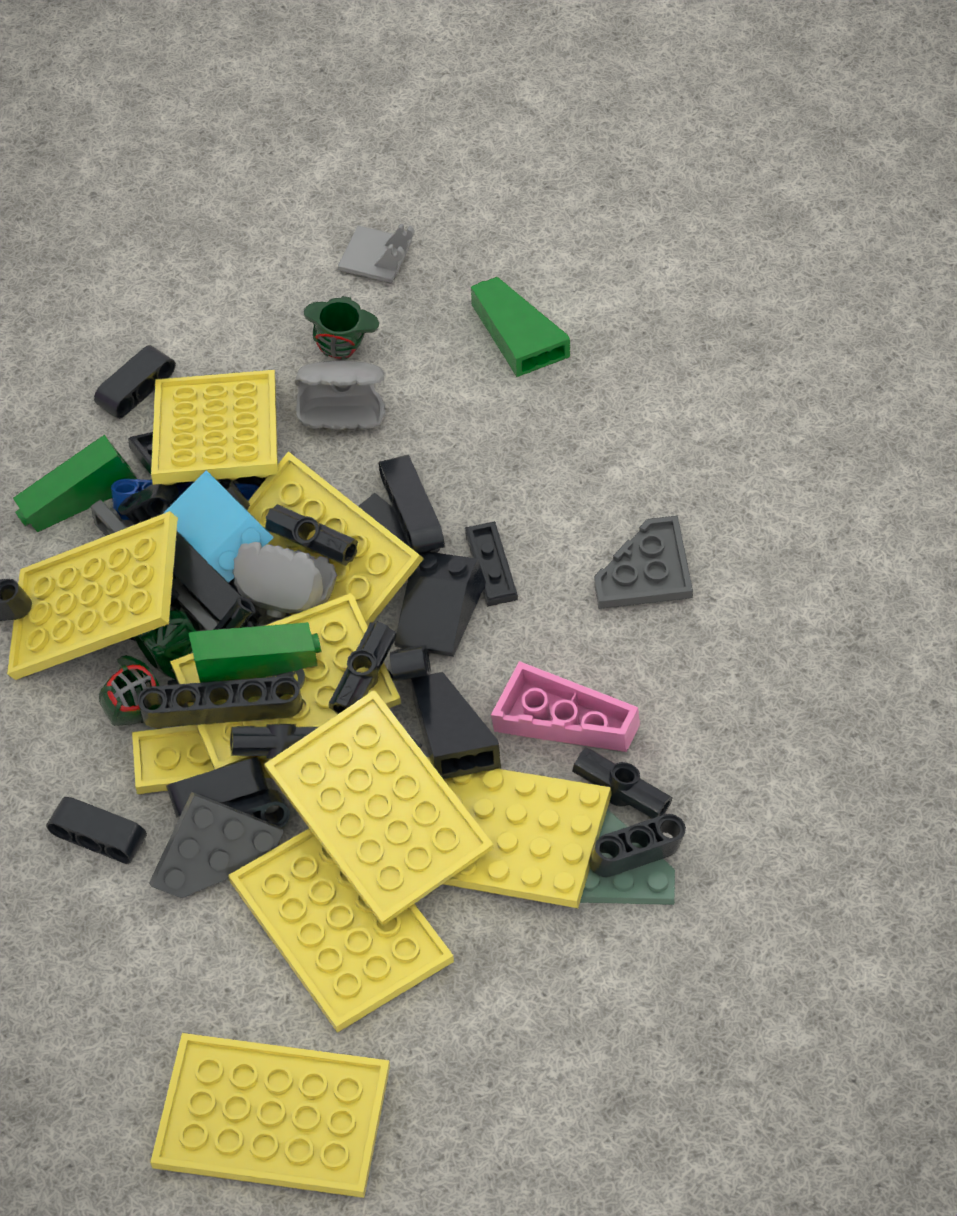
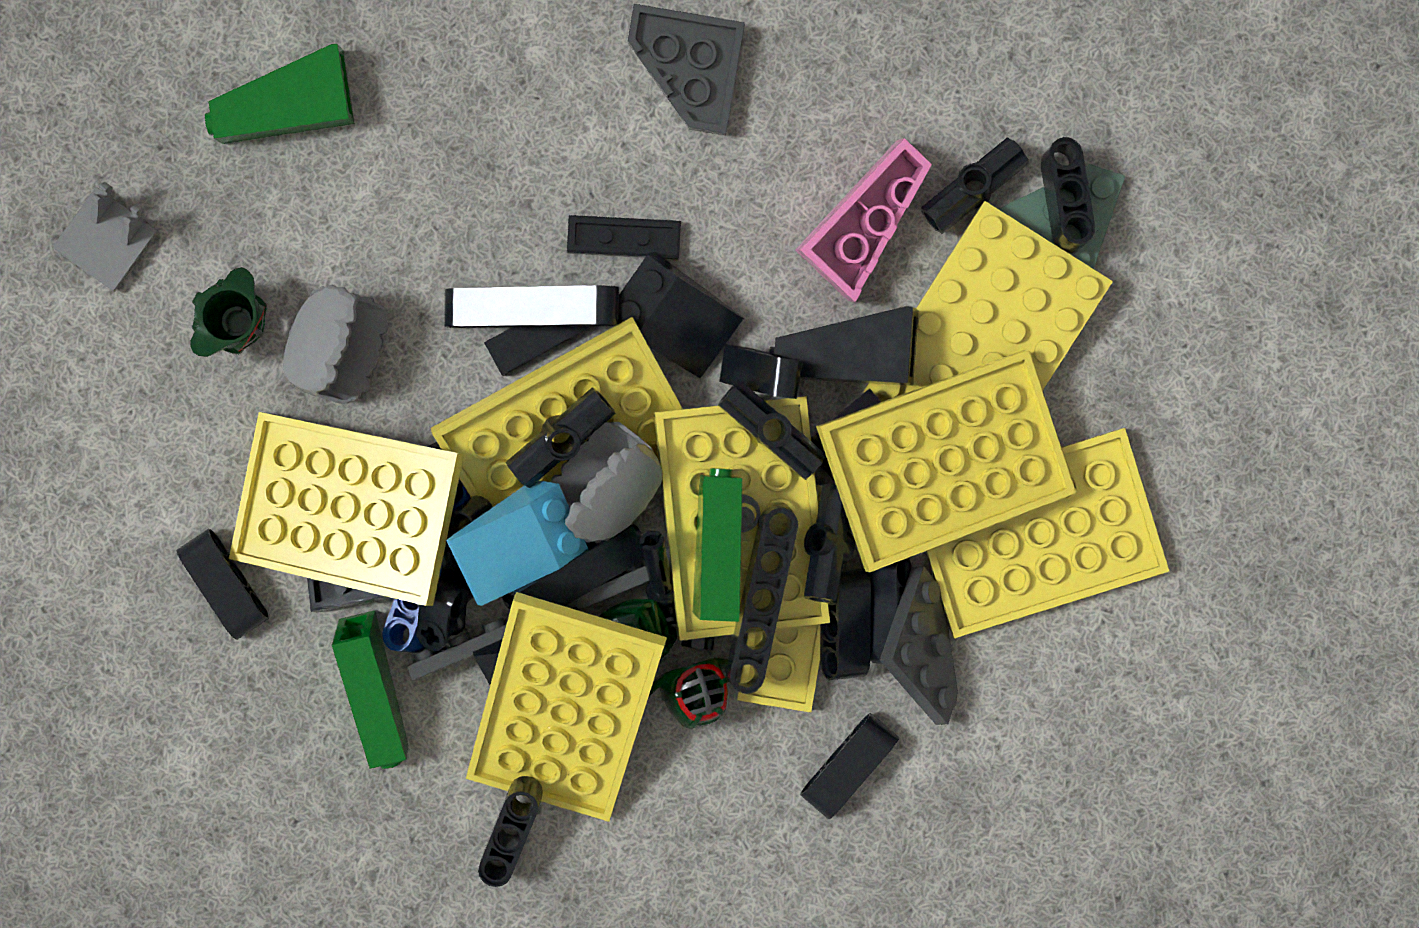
camera: 70 degrees left, 35 degrees up
(271, 1115) = (1242, 661): light yellow plate -> none

